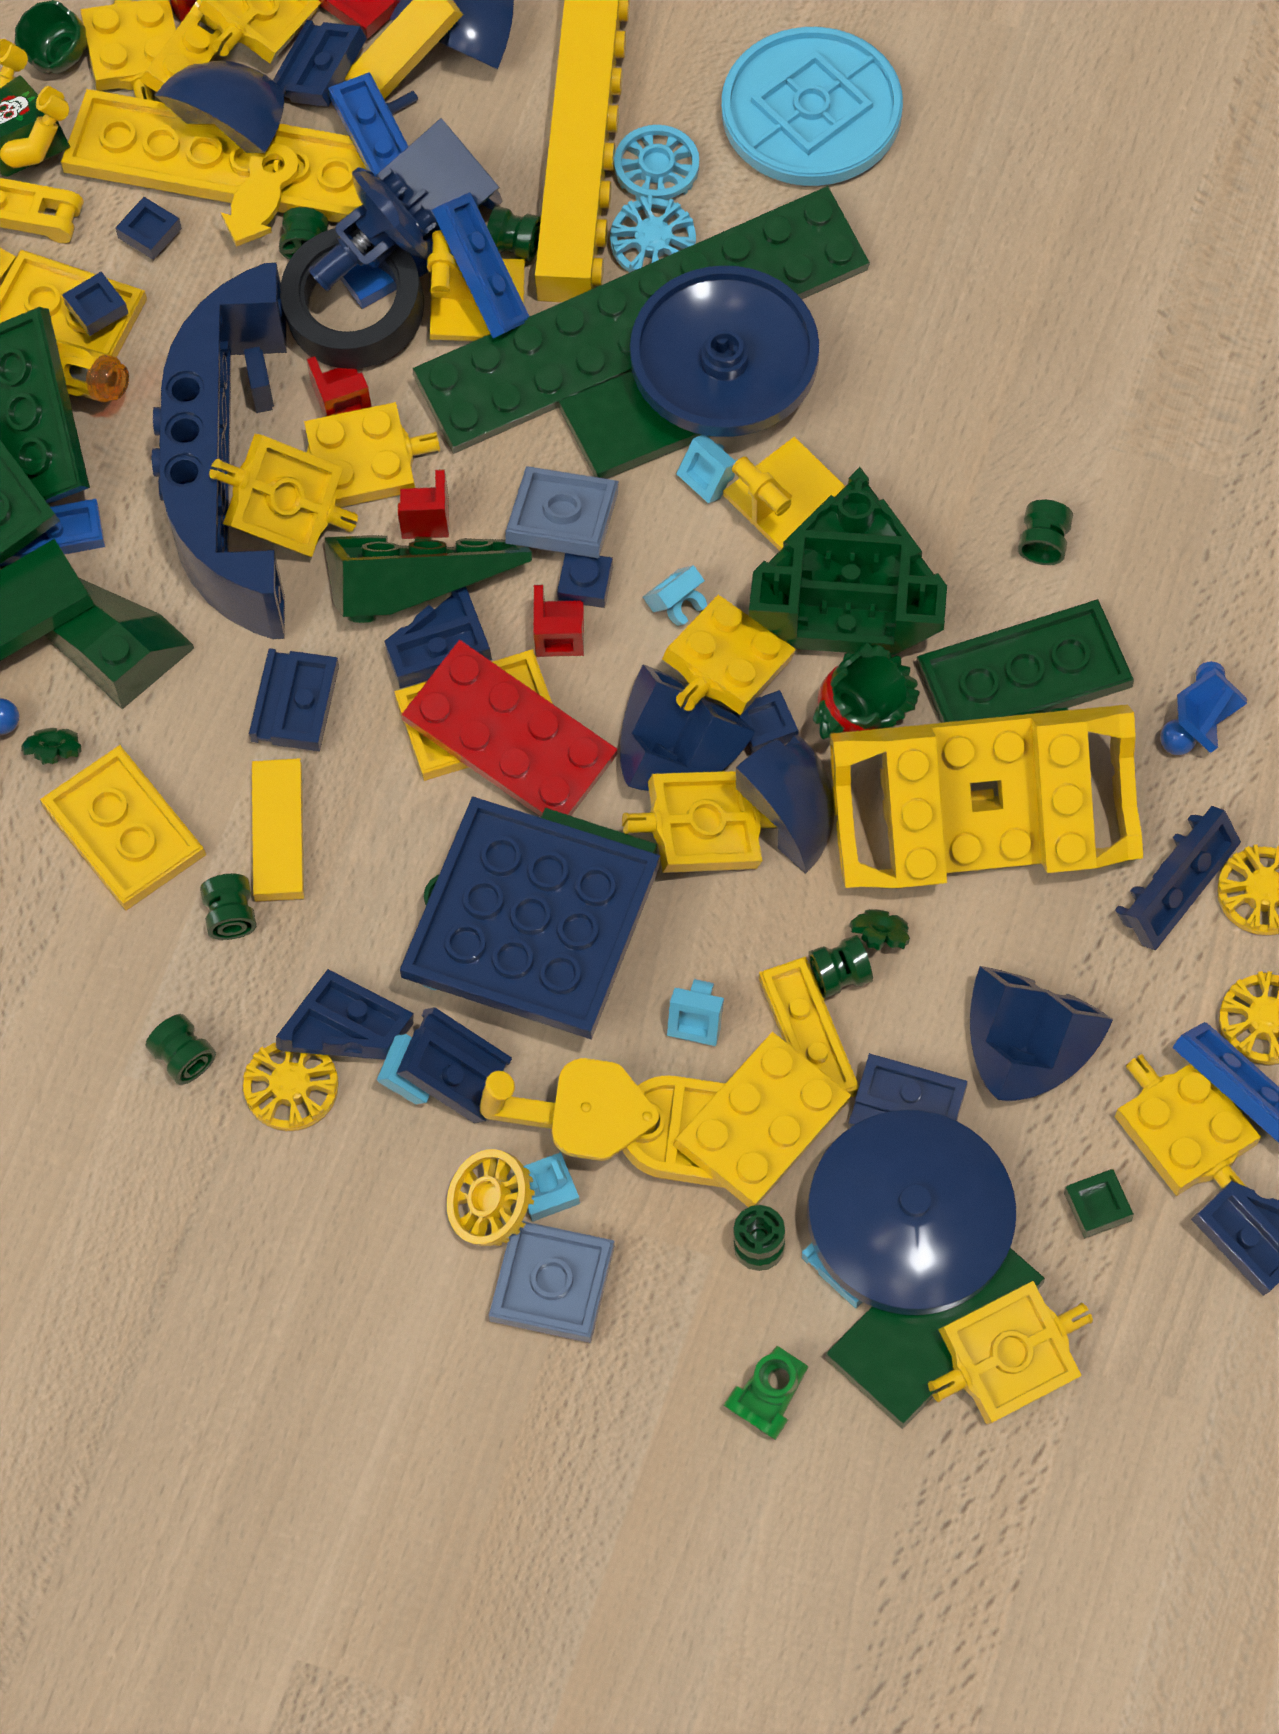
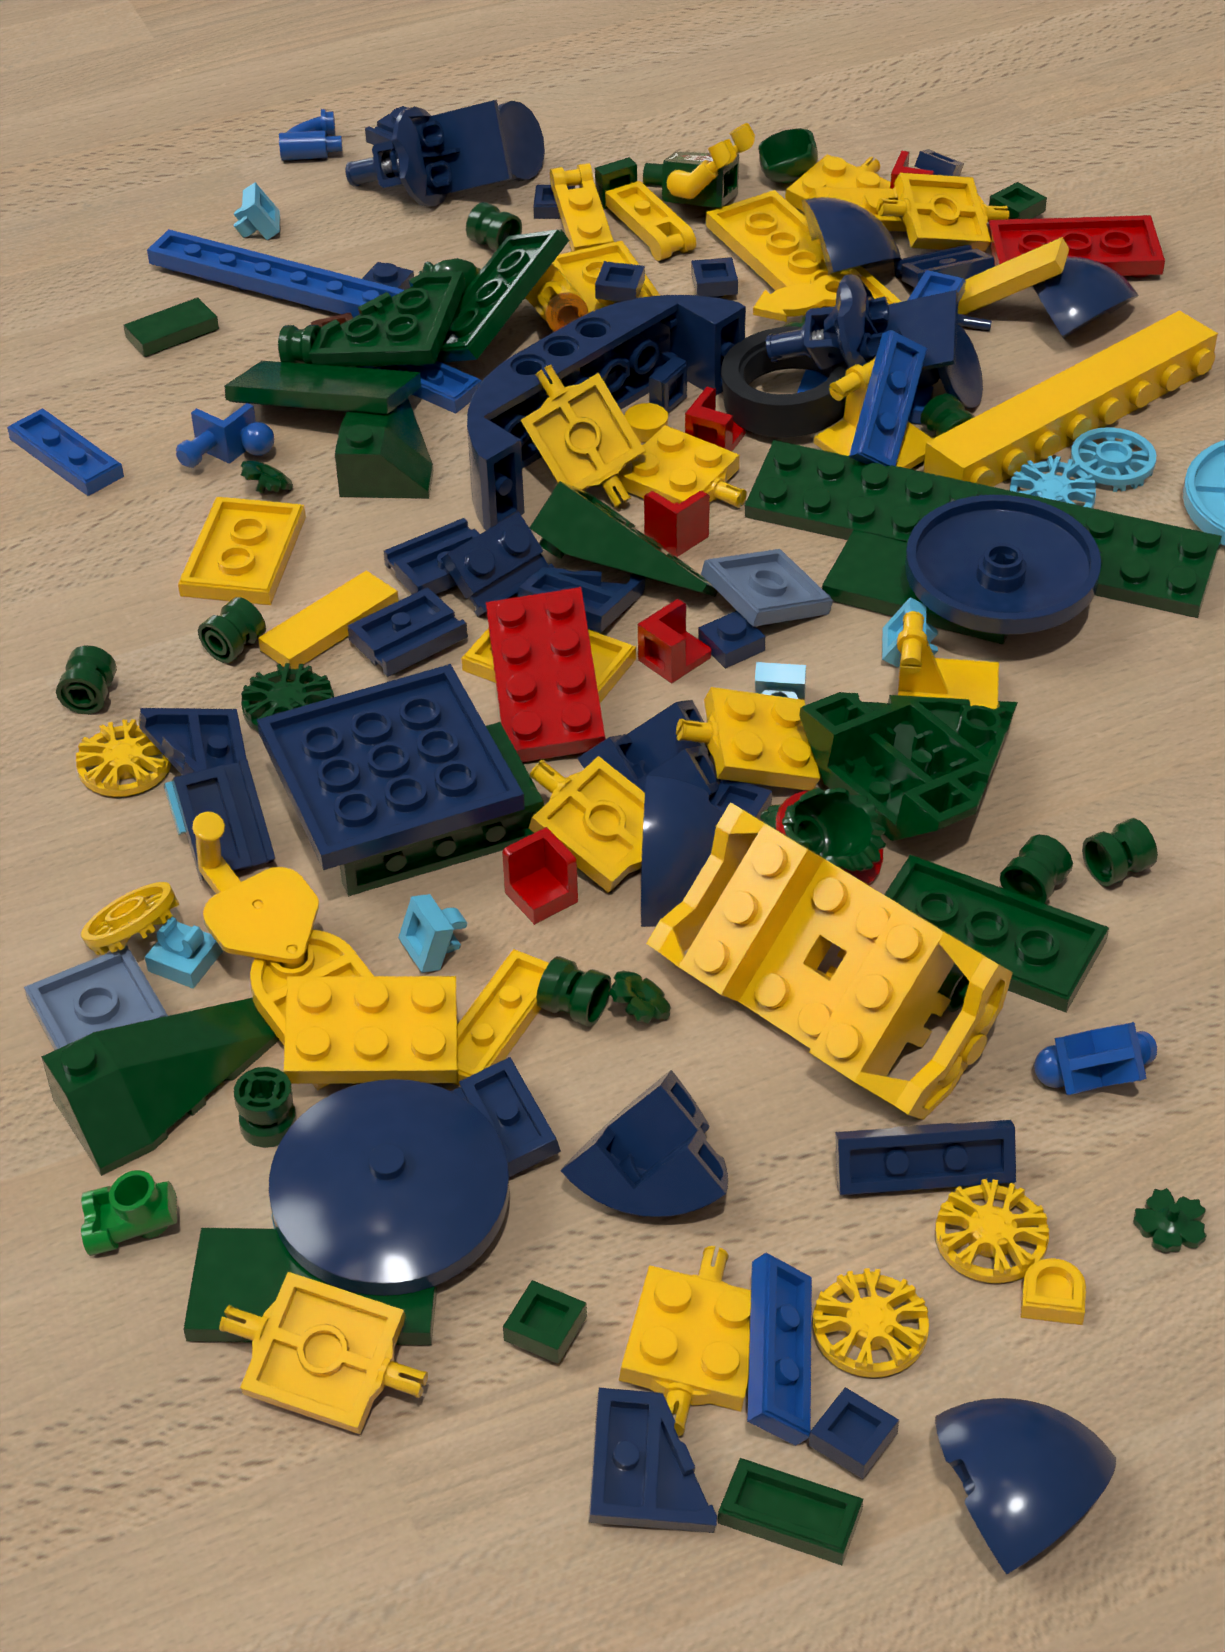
camera: 45 degrees right, 20 degrees down
(276, 422) = (646, 420): none -> yellow tile
(342, 925) = (278, 695): none -> dark green wheel
(350, 668) = (495, 562): none -> dark blue plate
(355, 787) = (407, 631): none -> dark blue plate
(657, 1297) = (140, 1078): none -> dark green wedge
(714, 901) = (540, 875): none -> red panel
(1012, 595) = (1038, 869): none -> dark green wheel

